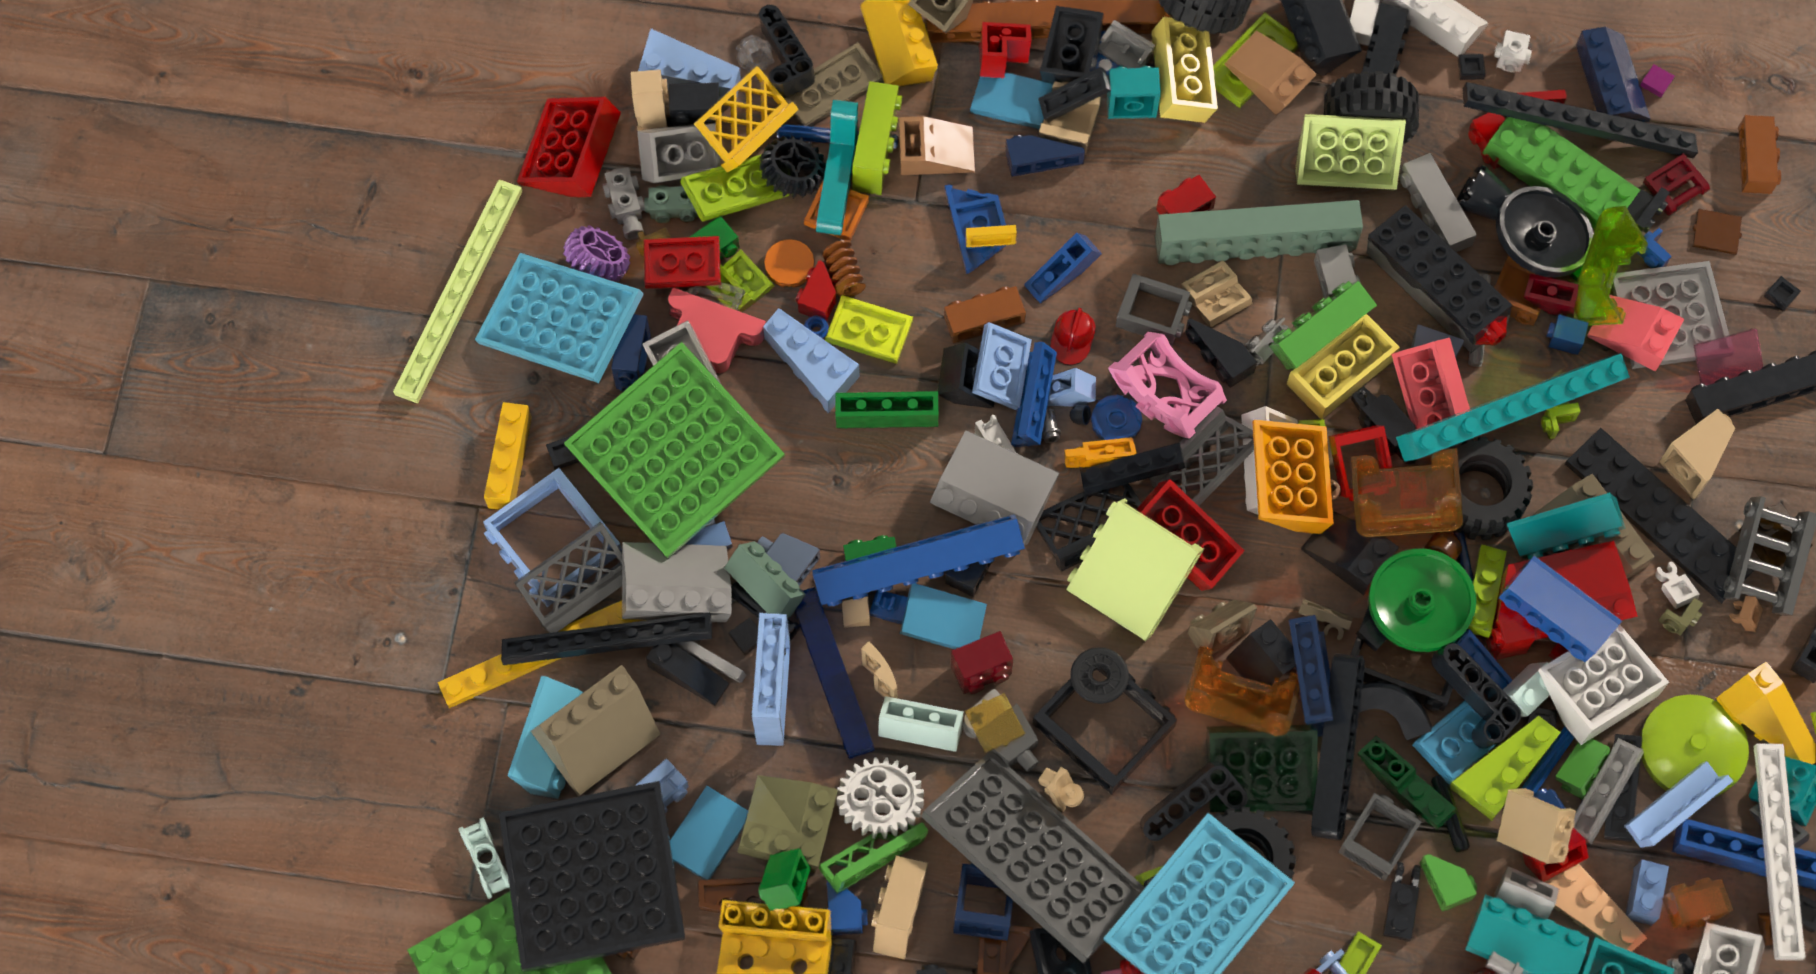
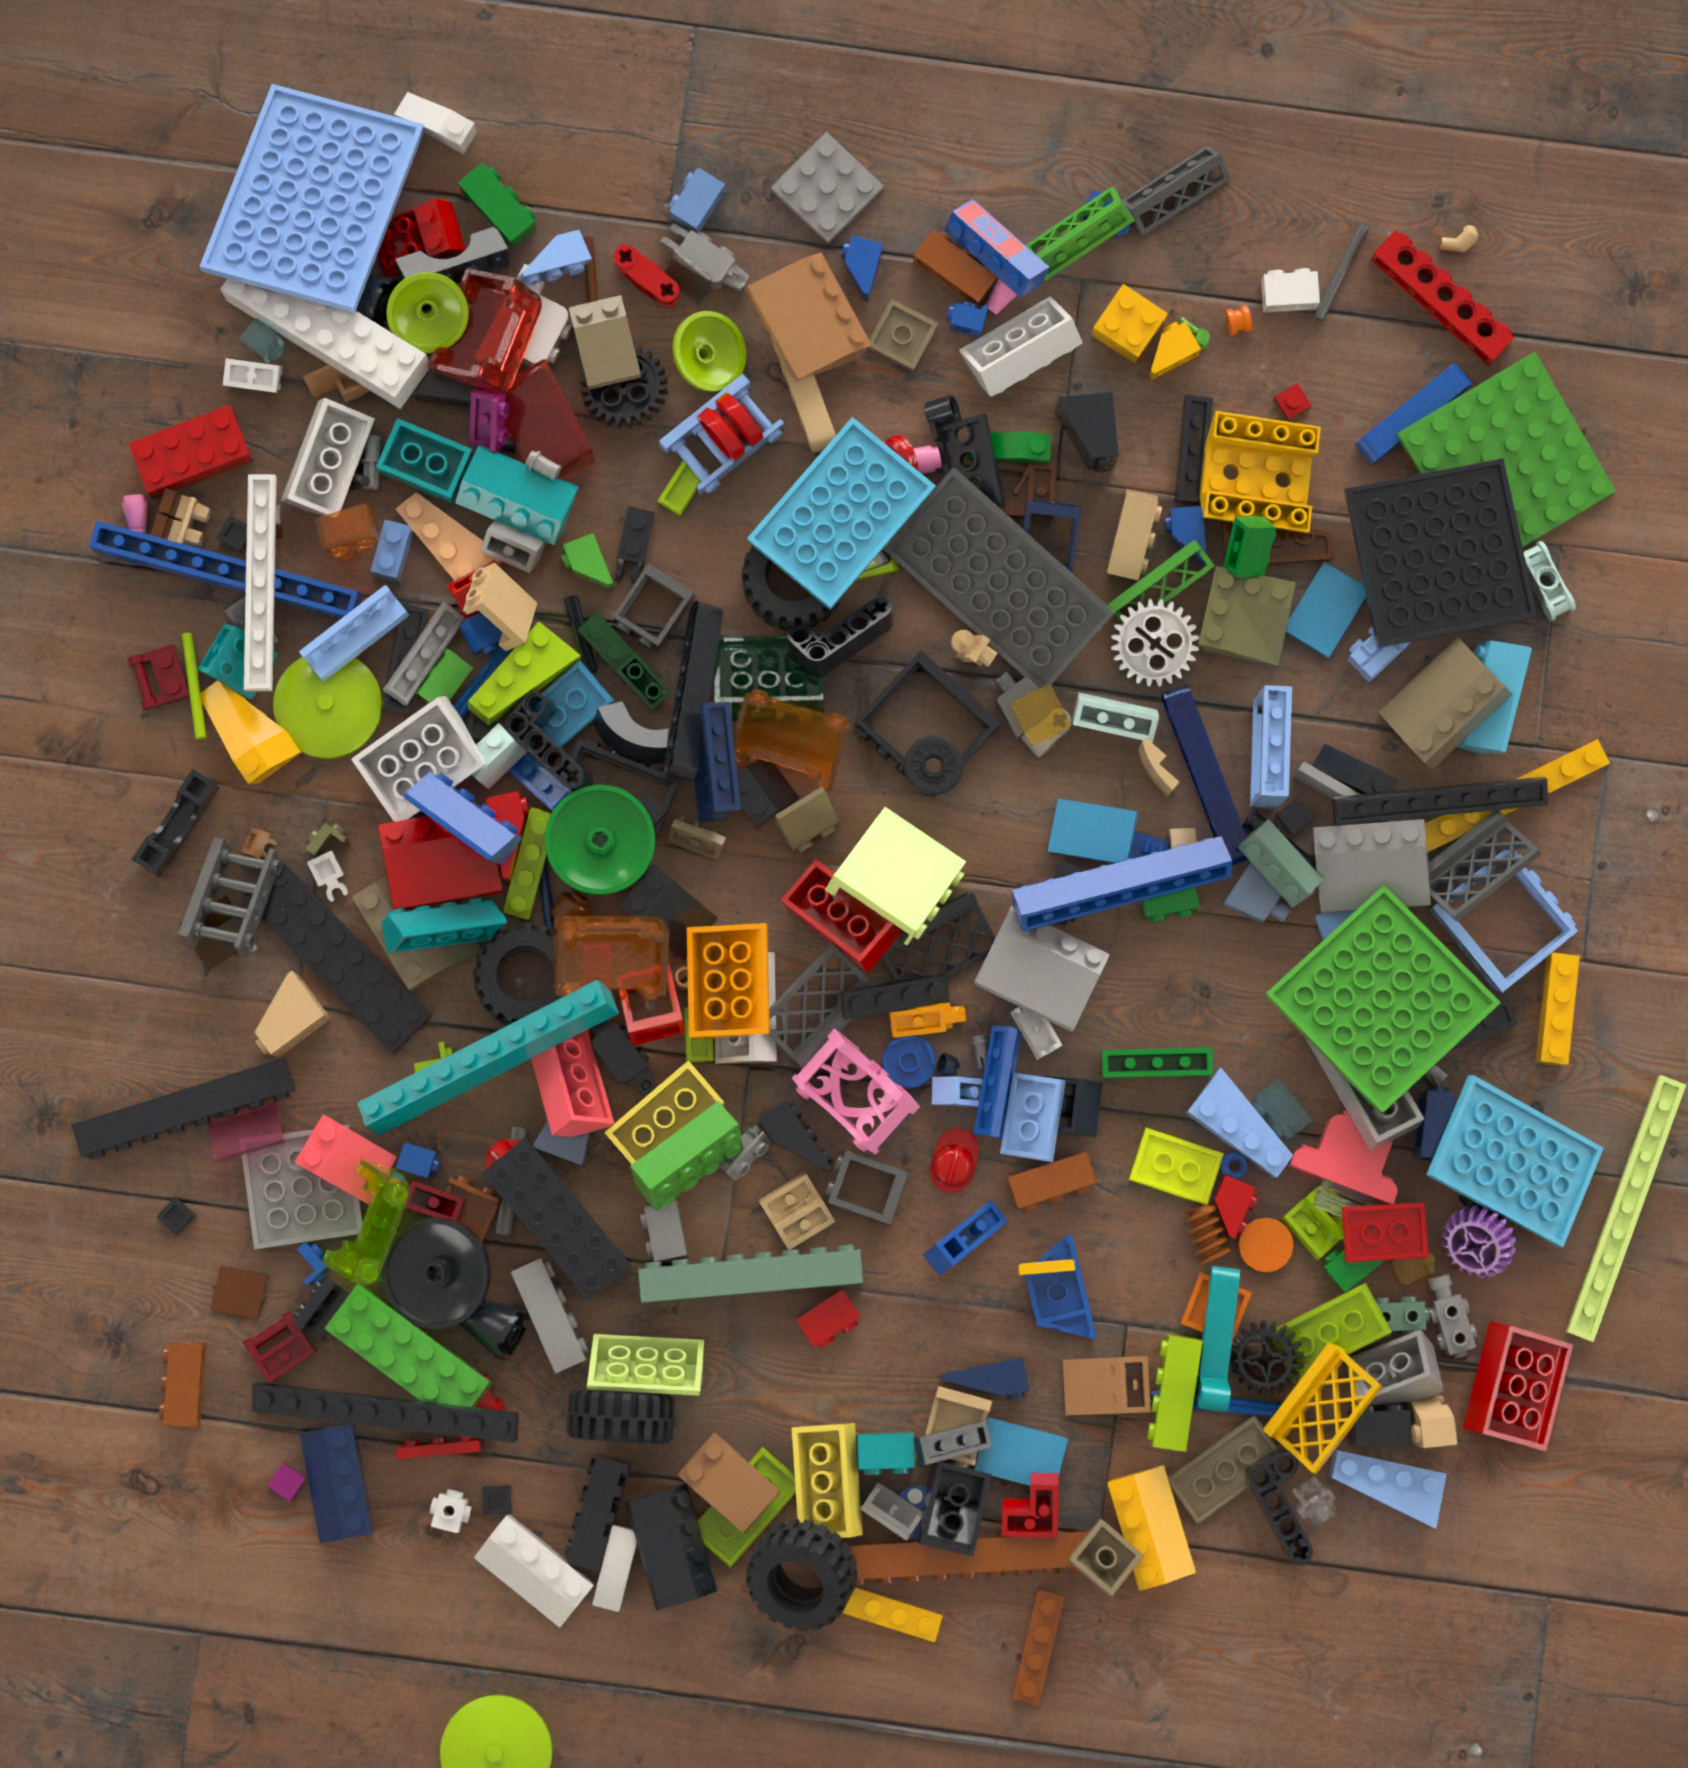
camera: 175 degrees right, 15 degrees up
(771, 374) = (1281, 1109): none -> clear light blue bracket
(982, 663) = (1054, 778): dark red brick -> none

